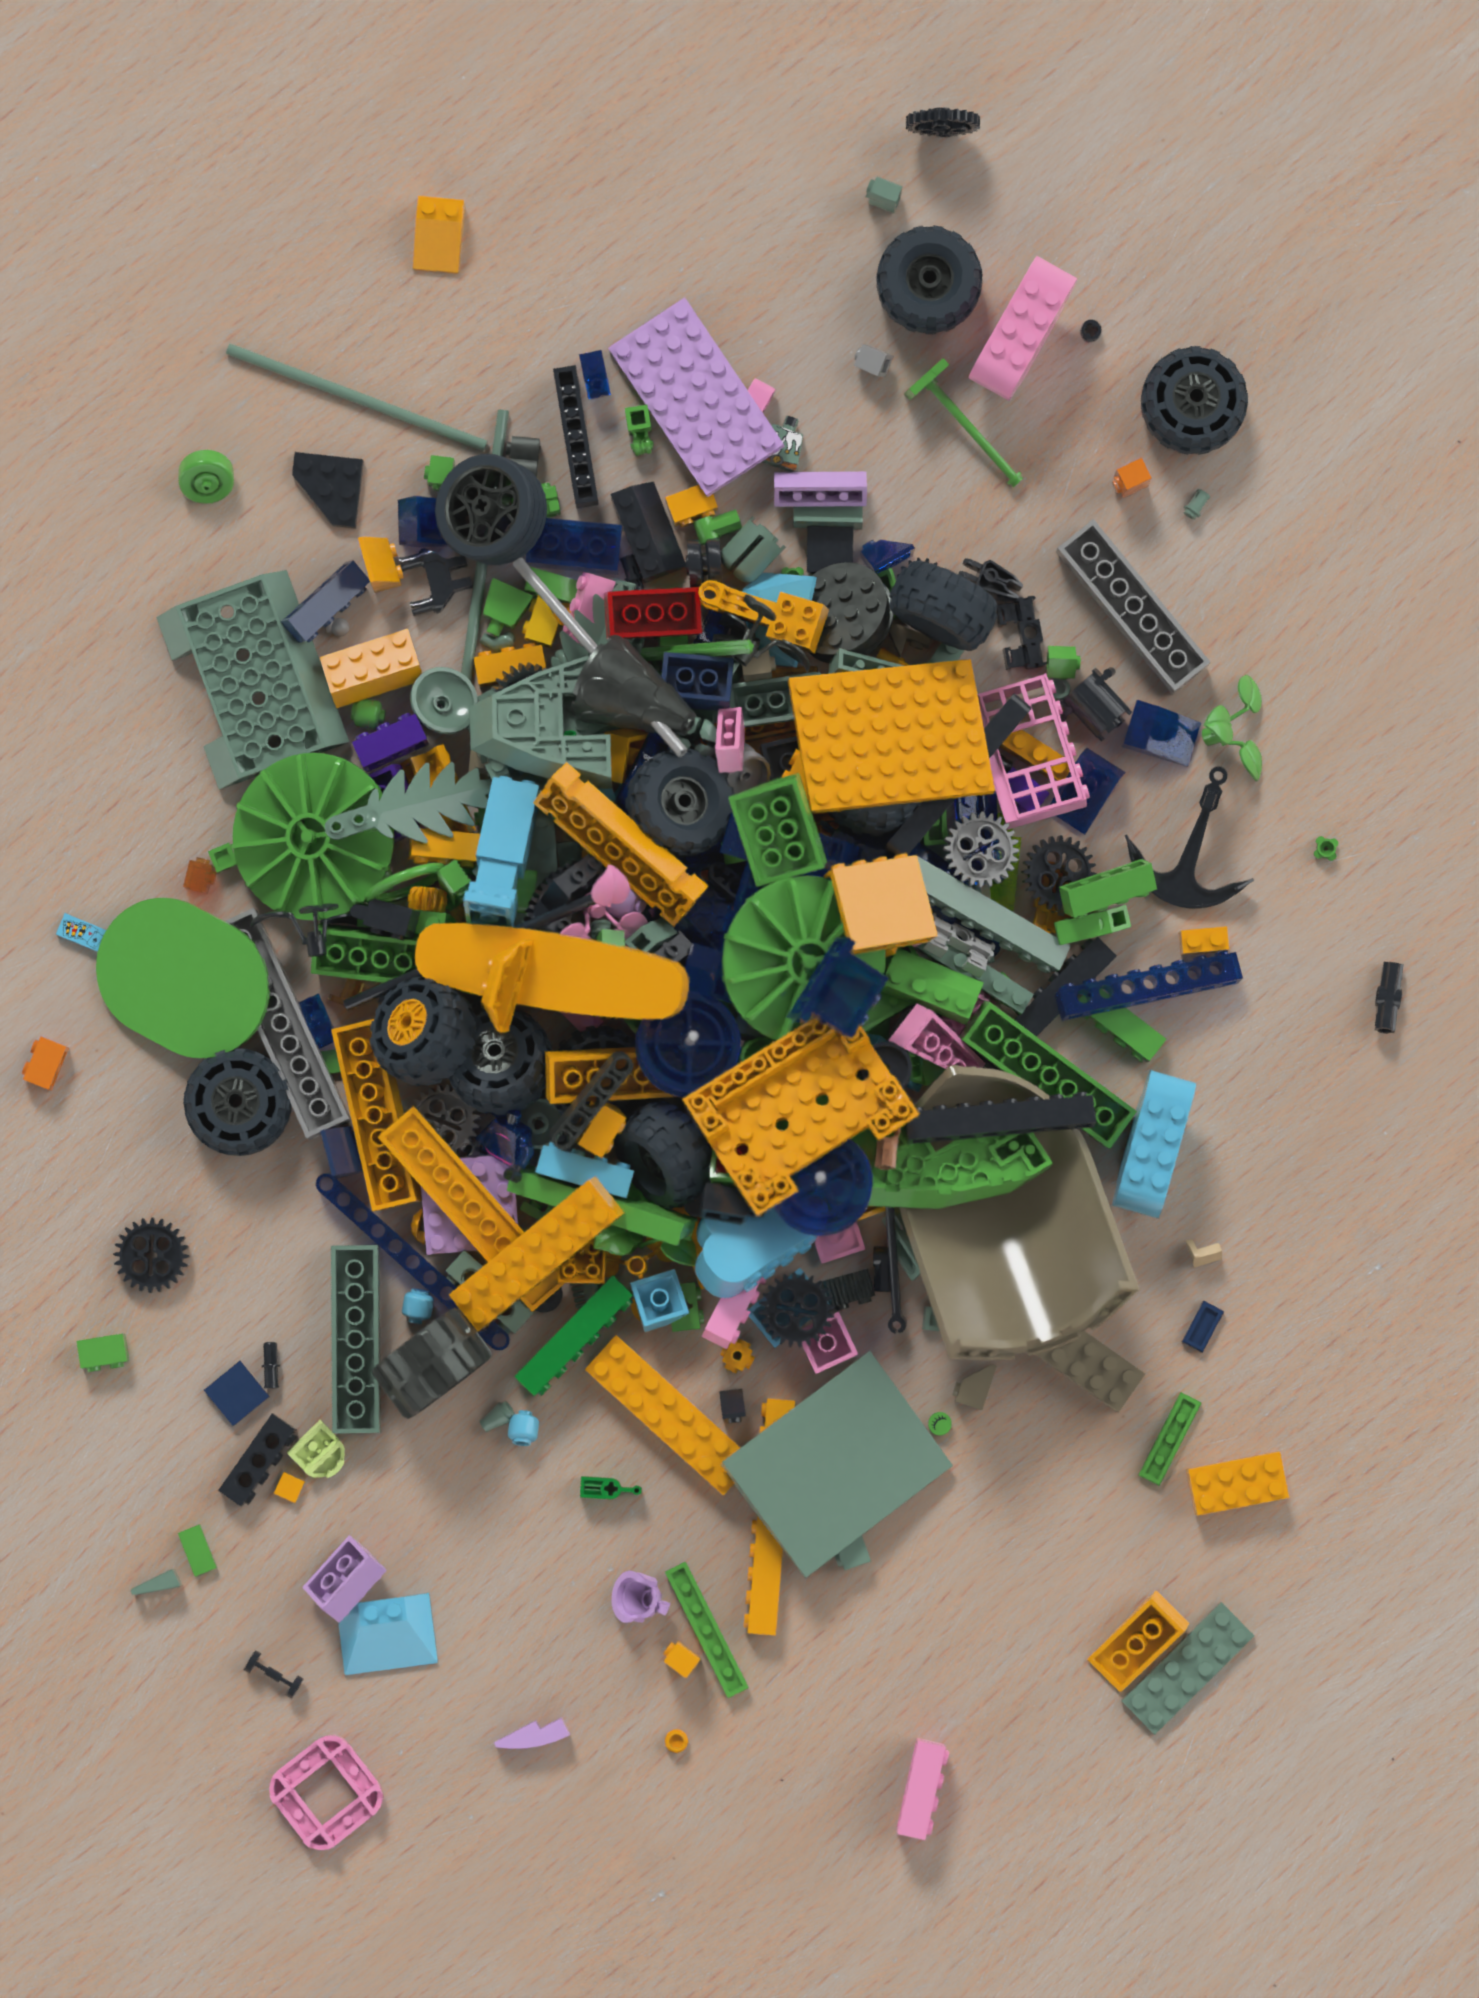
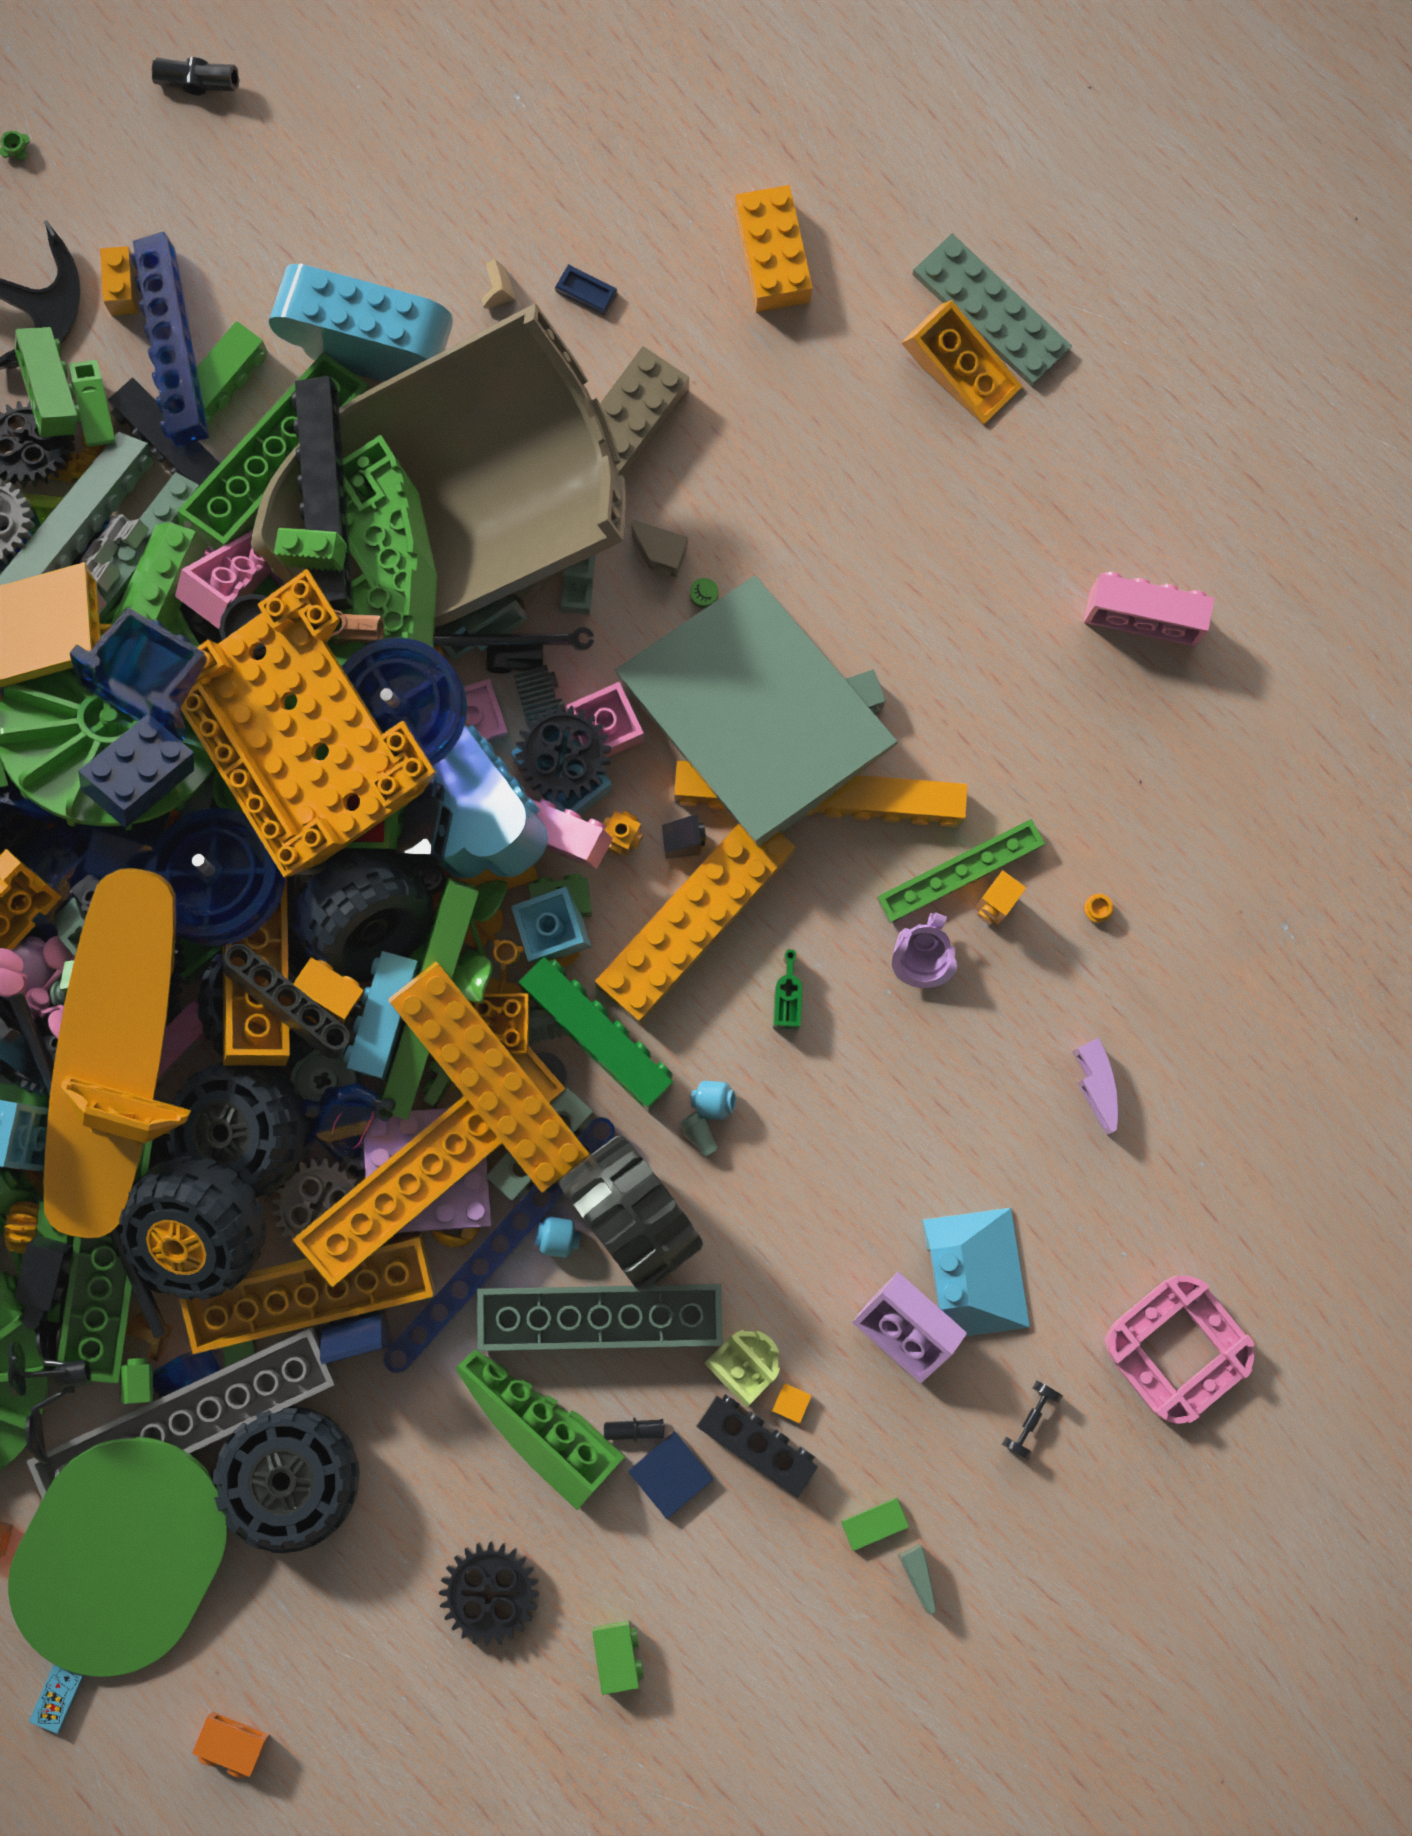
camera: 95 degrees left, 5 degrees down
(265, 1299) = (551, 1440): none -> bright green wedge
(311, 987) = (136, 1381): none -> bright green brick
(761, 988) = (136, 770): none -> dark blue brick
(946, 1112) = (310, 549): none -> bright green brick
(1169, 1438) = (720, 328): bright green tile -> none

